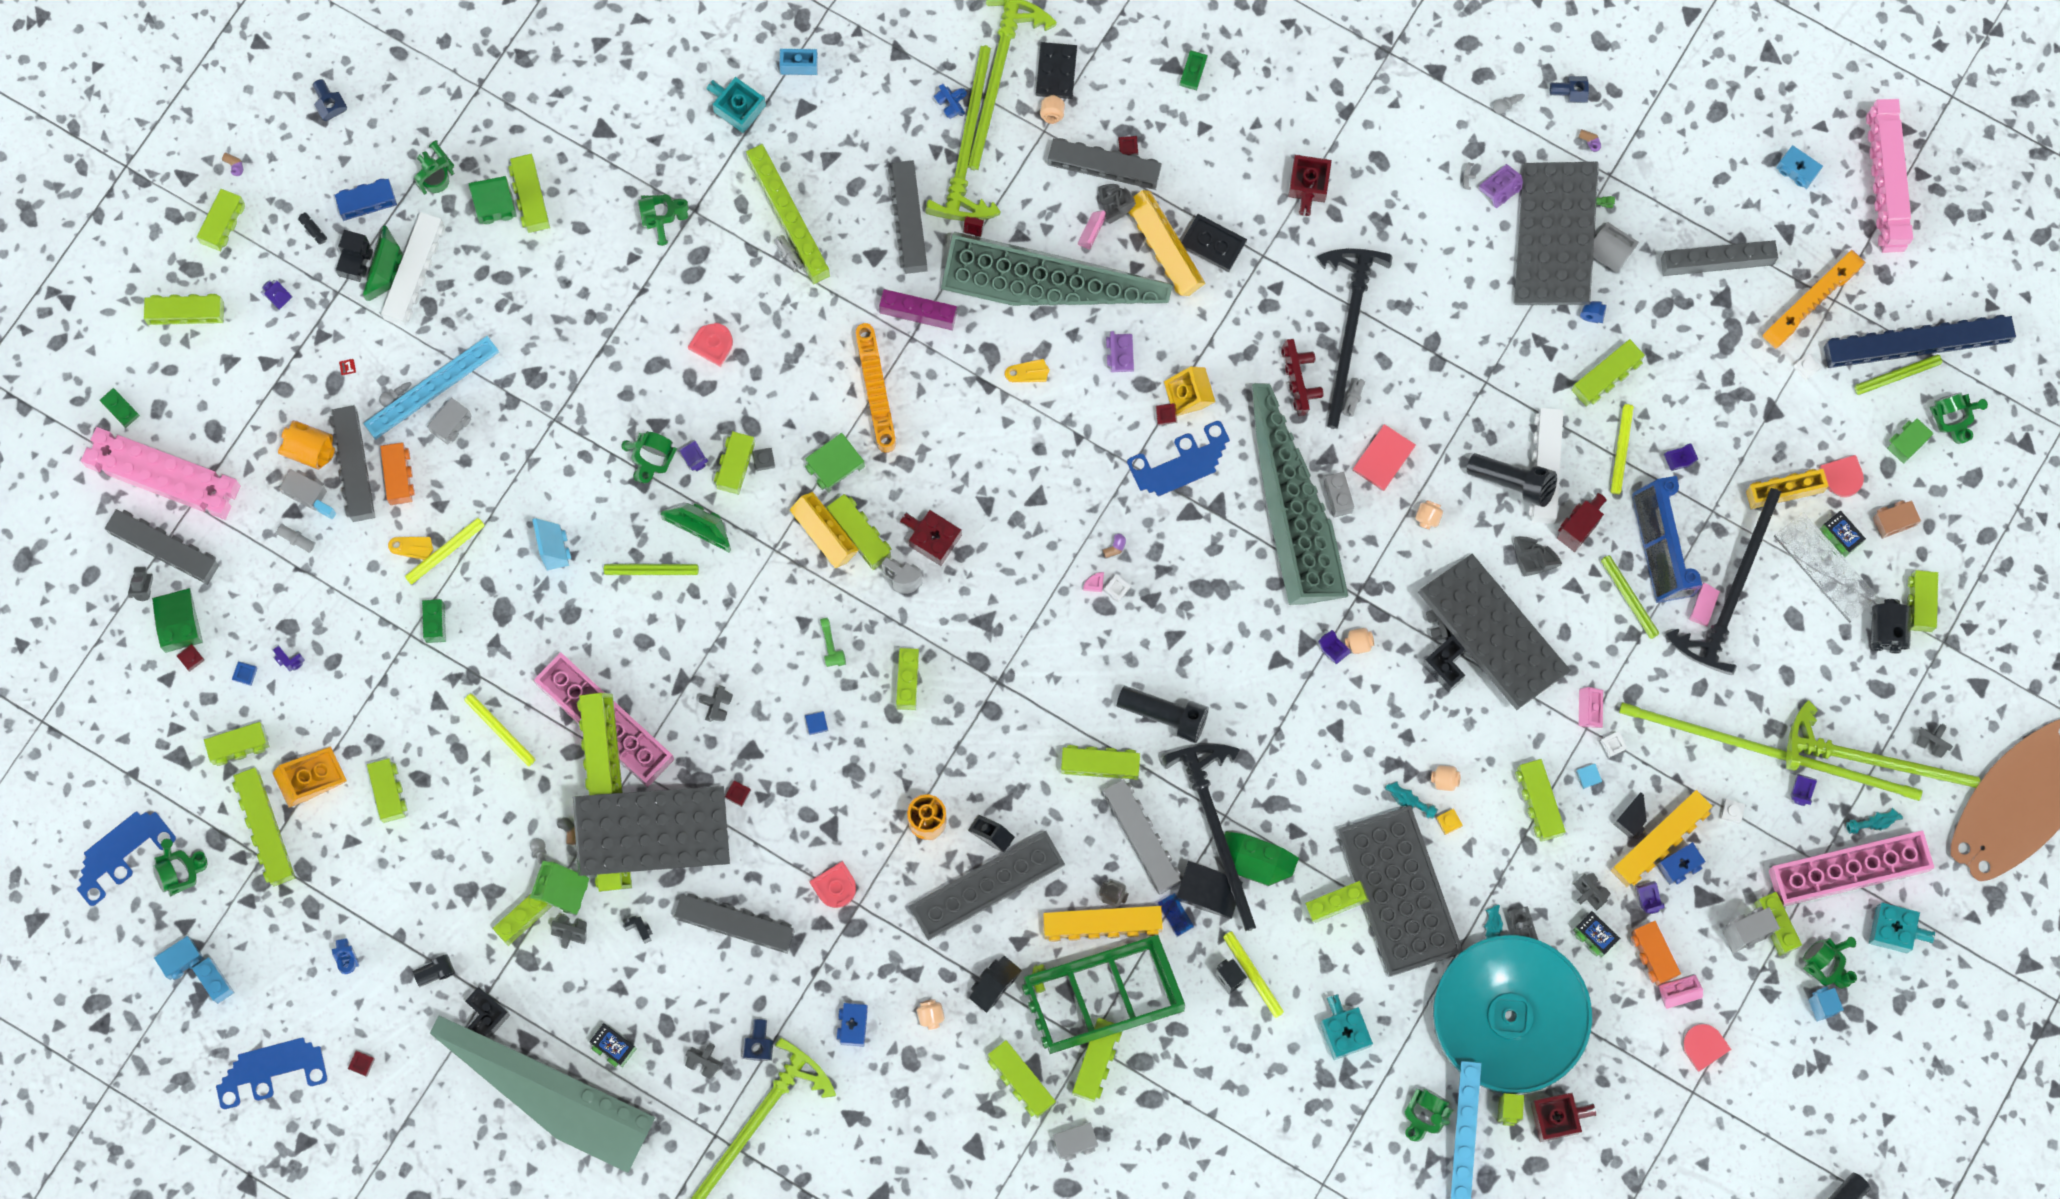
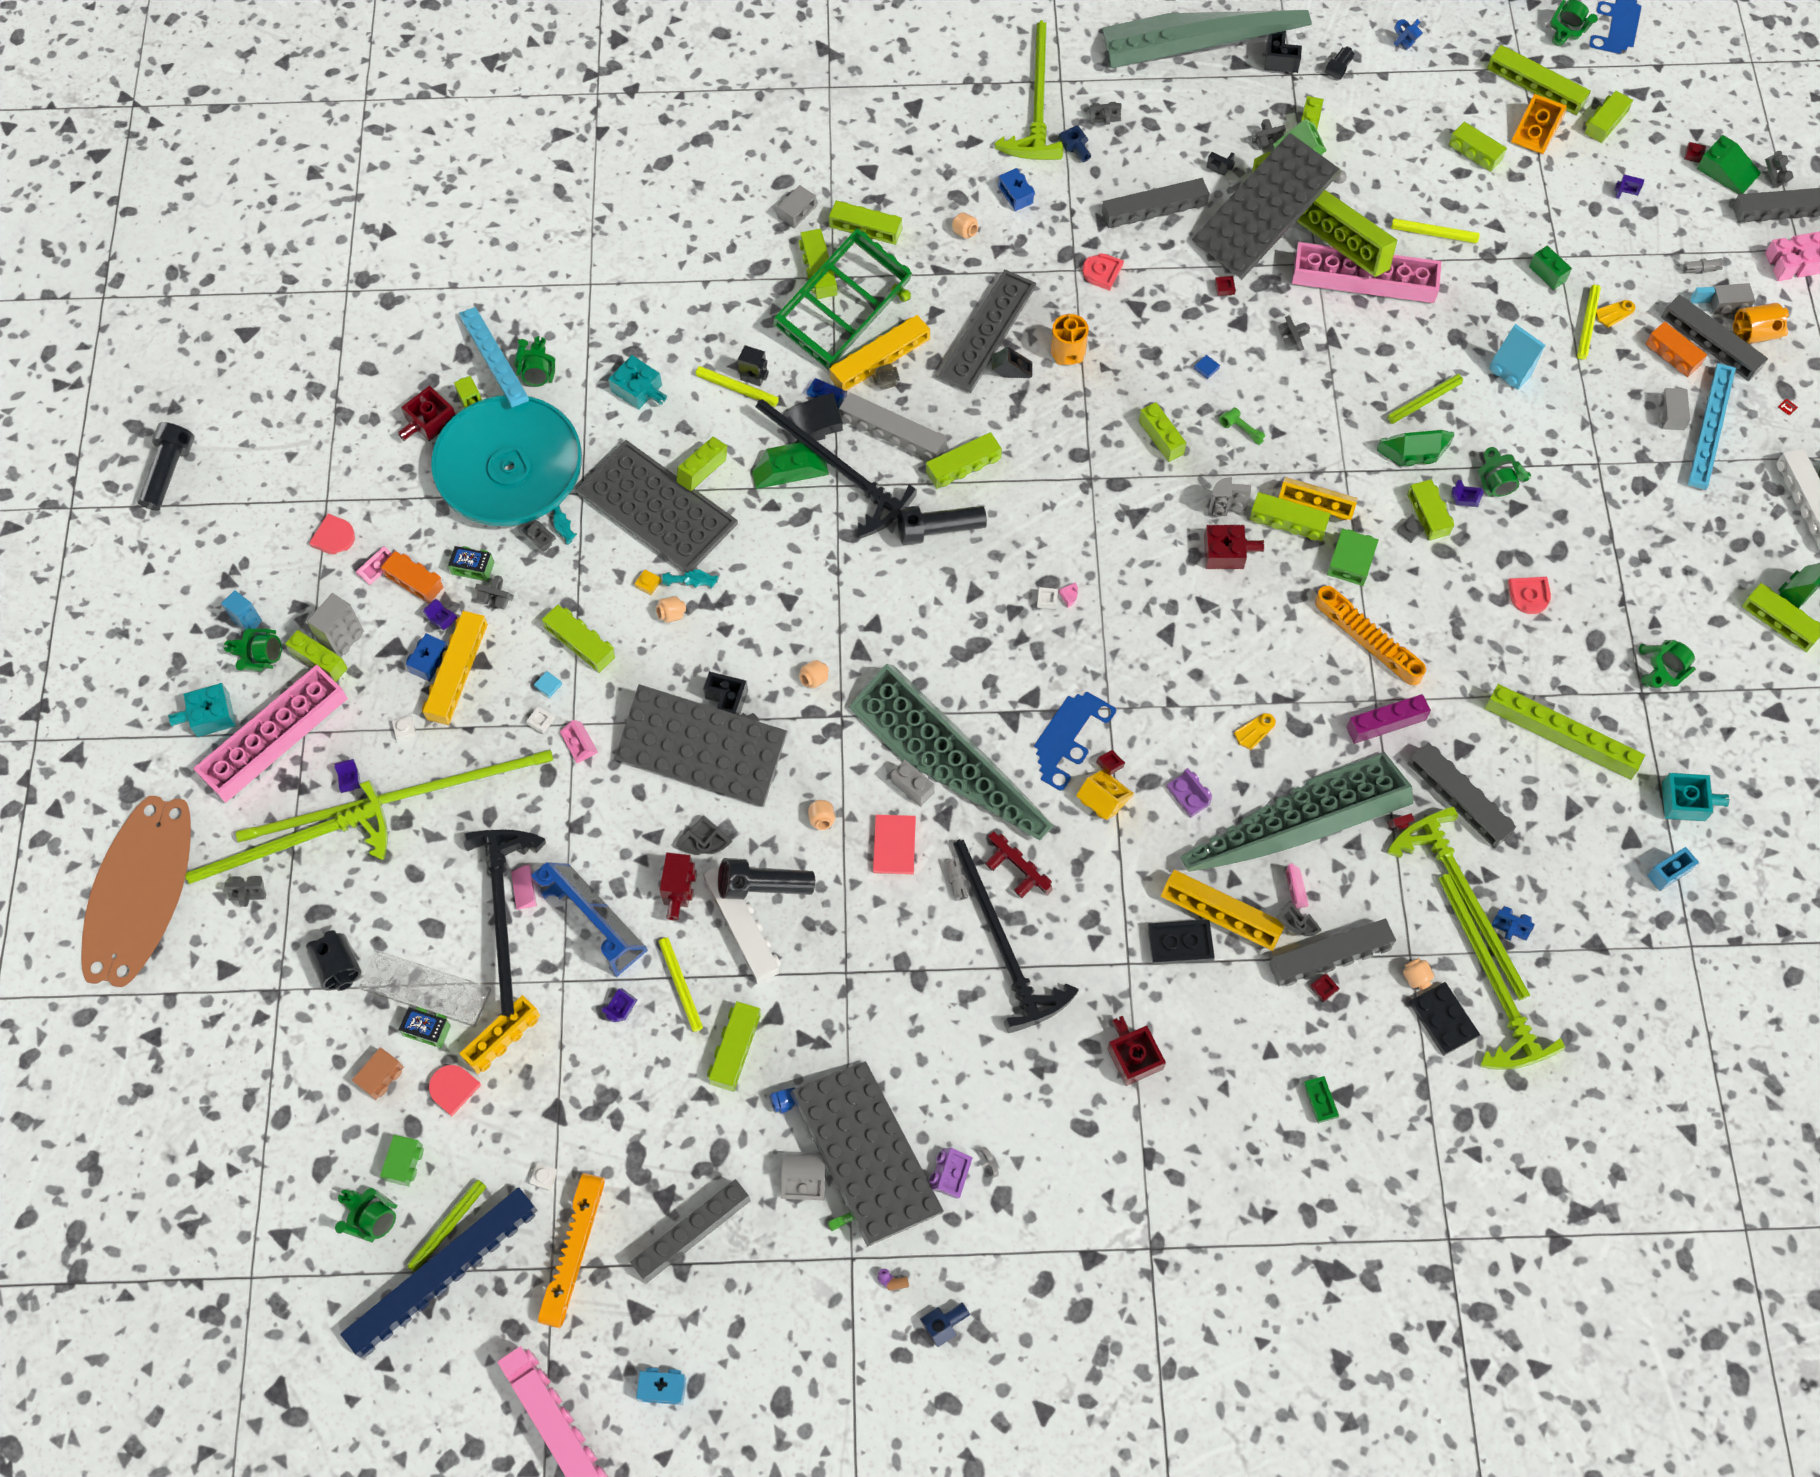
camera: 150 degrees right, 10 degrees down
(244, 673) = (1648, 164): blue tile -> none
(389, 397) = (1735, 400): light grey bar -> none
(612, 1045) = (1177, 87): brick -> none
(994, 983) = (930, 269): black brick -> none
(1117, 547) = (1071, 631): arm -> none
(1333, 647) = (832, 656): dark purple bracket -> none
(1501, 105) = (1003, 1258): light grey bar -> none
(1630, 597) = (597, 854): lime axle -> none
(1633, 818) = (490, 669): black slope -> none
(1880, 821) = (264, 793): teal piece -> none
(1923, 600) = (315, 1010): lime brick -> none

